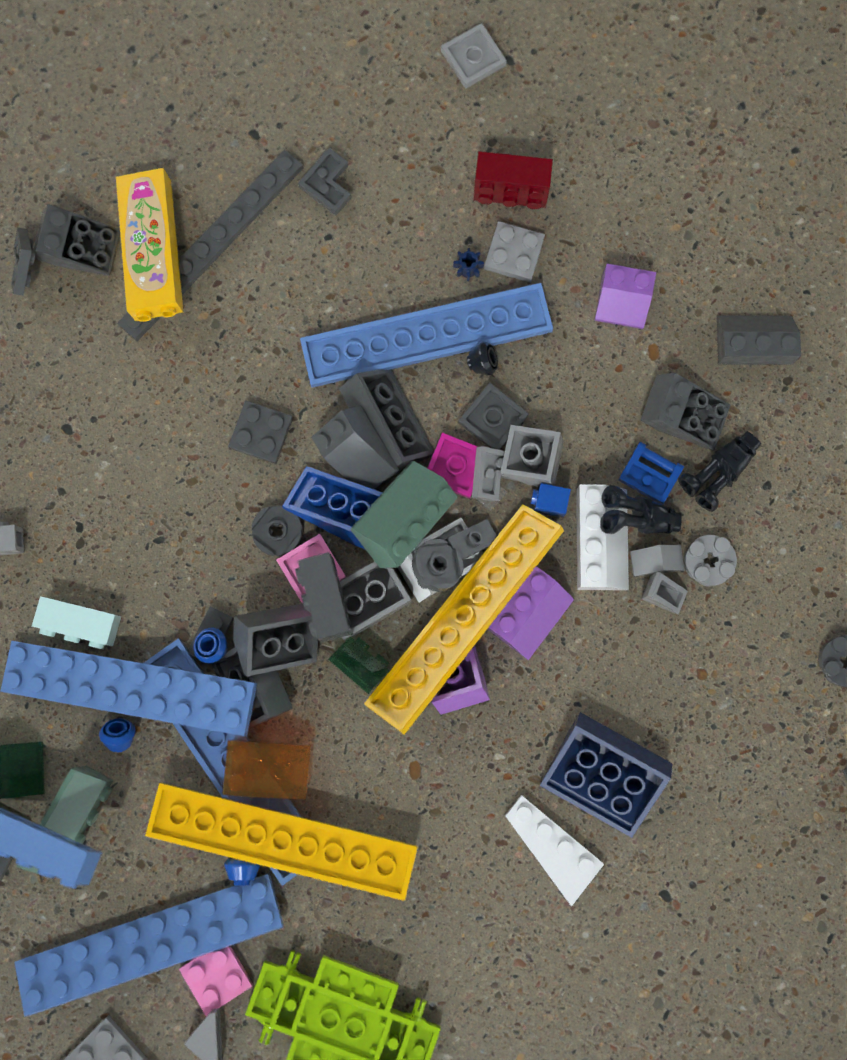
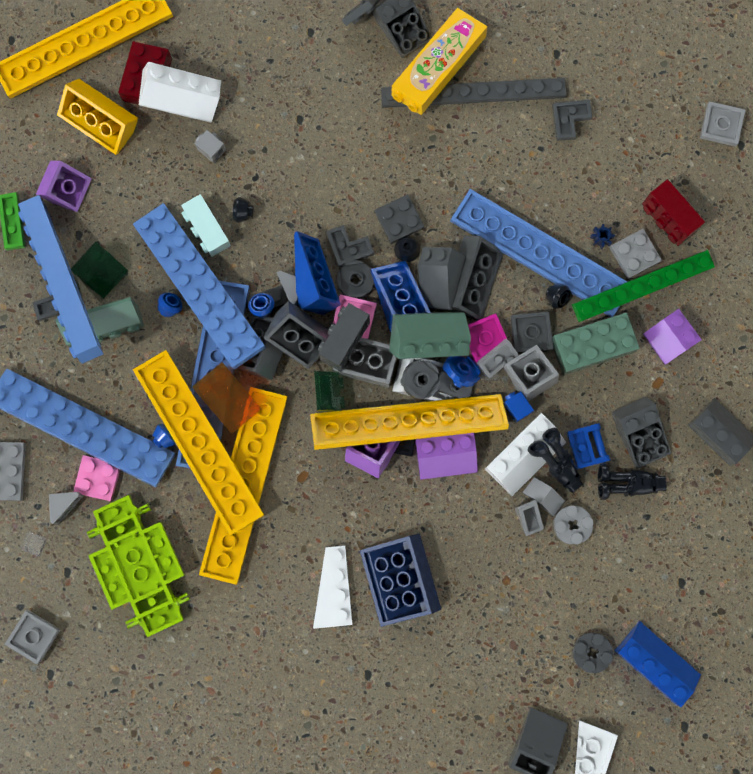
camera: 45 degrees right, 0 degrees up
(98, 571) = (242, 210): none -> black cone
(222, 597) = (289, 285): none -> light grey slope
(232, 568) = (313, 278): none -> blue slope
(237, 512) = (345, 250): none -> dark grey plate
(297, 461) = (402, 249): none -> black cone
(350, 803) = (252, 458): none -> yellow plate
(456, 523) = (462, 371): none -> blue plate
(485, 644) = (405, 448): none -> black tile
(551, 275) = (643, 286): none -> green plate
(562, 371) = (595, 343): none -> sand green brick

